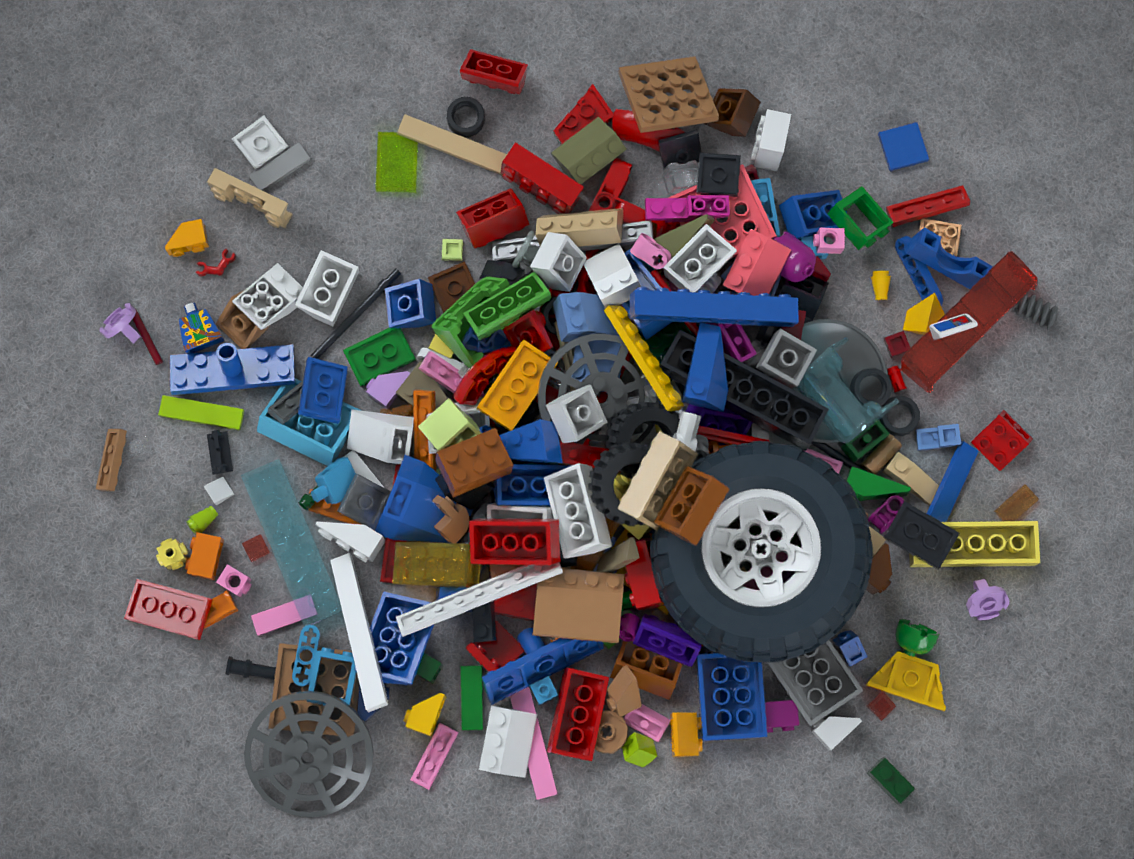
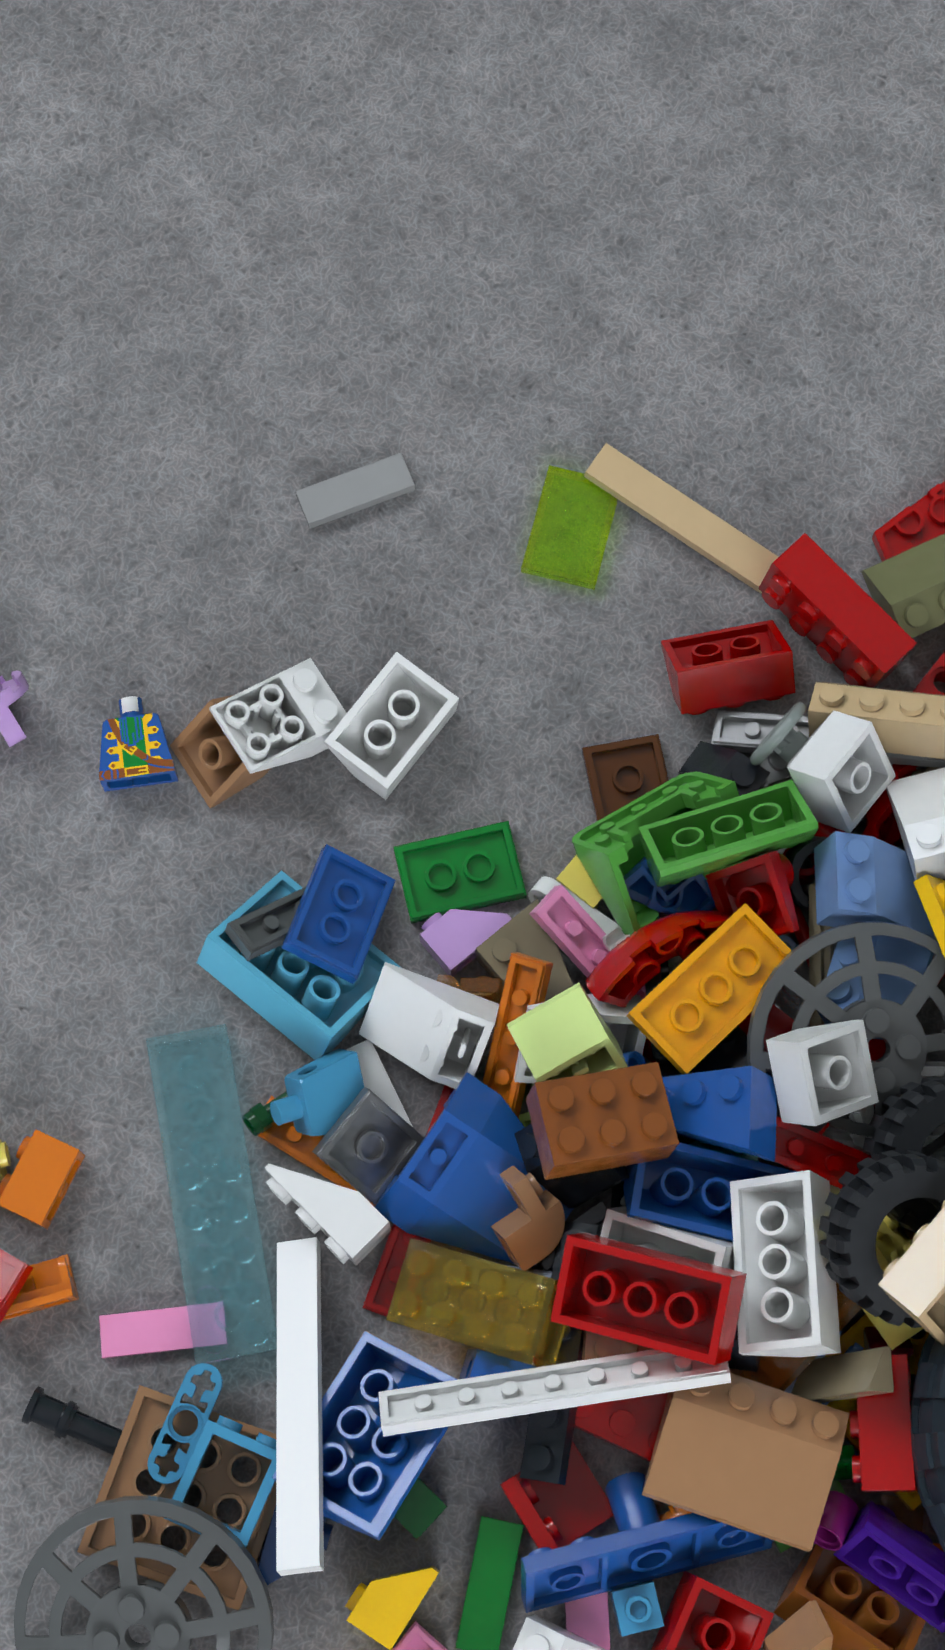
camera: 15 degrees right, 5 degrees down
(147, 339) = (36, 744): dark red bar -> none
(188, 237) = (157, 577): light orange slope -> none
(201, 412) = (102, 903): lime tile -> none
(202, 519) = (52, 1106): lime cone -> none
(219, 270) = (201, 649): red arm -> none
(219, 452) = (118, 986): black hinge -> none
(219, 490) = (98, 1058): white slope -> none
(226, 577) = (69, 1231): bright pink brick -> none
(227, 187) = (253, 501): tan piece -> none
(232, 369) = (179, 835): plate -> none
(256, 548) = (141, 1185): clear red tile -> none
(260, 143) = (330, 438): white plate -> none
(384, 283) = (496, 746): black bar -> none
(410, 304) = (540, 791): blue slope -> none
(452, 249) = (639, 708): yellowish green tile -> none
(468, 102) = (723, 447): black tyre -> none
(494, 71) = (786, 404): red slope -> none

